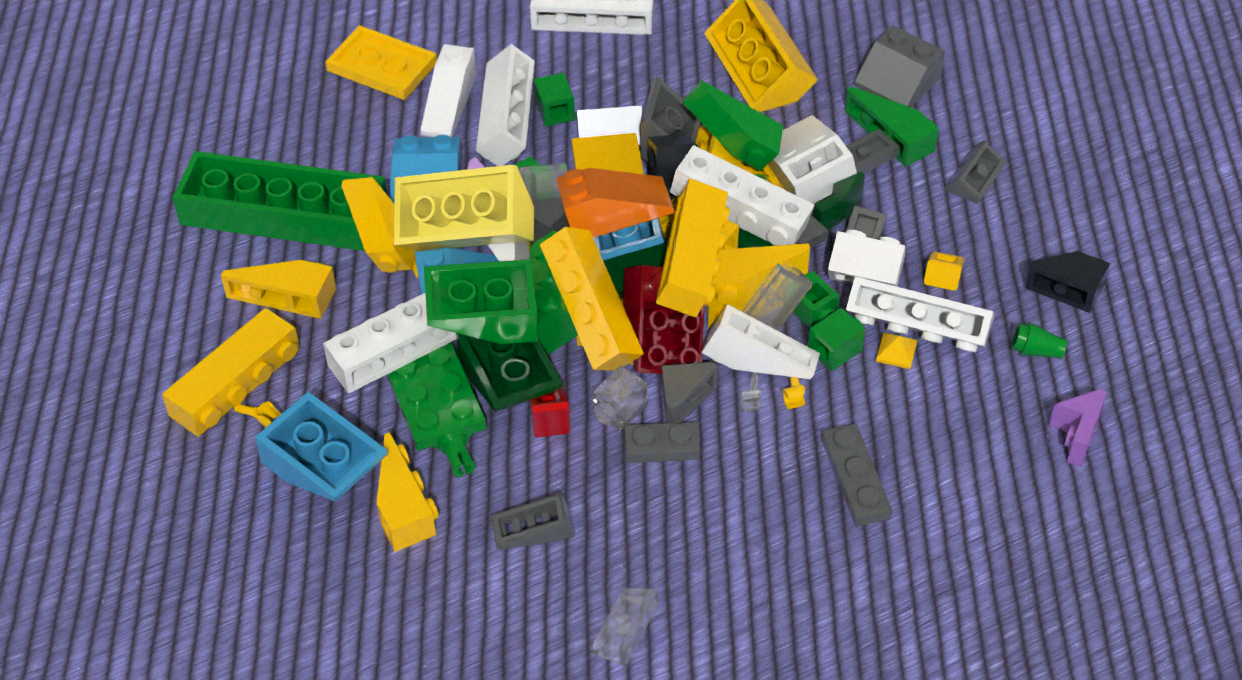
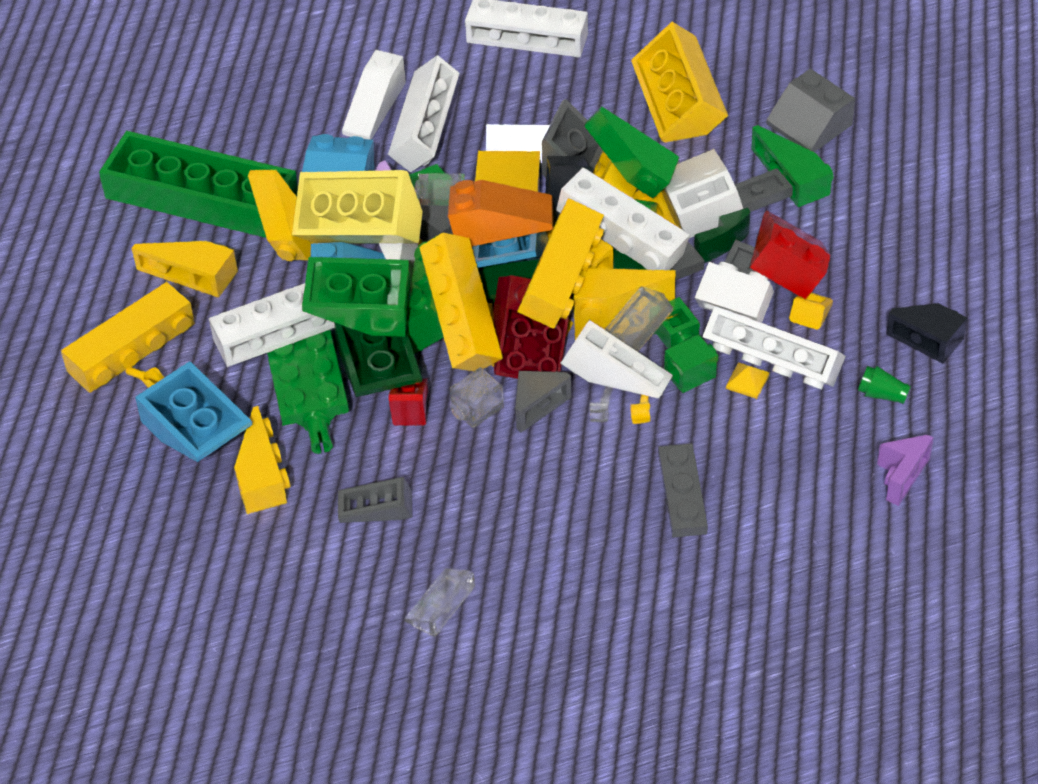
camera: 10 degrees right, 0 degrees up
(381, 62) = (317, 61): yellow plate -> none
(554, 99) = (472, 111): green brick -> none
(662, 442) = (508, 442): dark grey plate -> none
(917, 217) = (789, 256): none -> red slope
(976, 173) = (864, 219): dark grey slope -> none

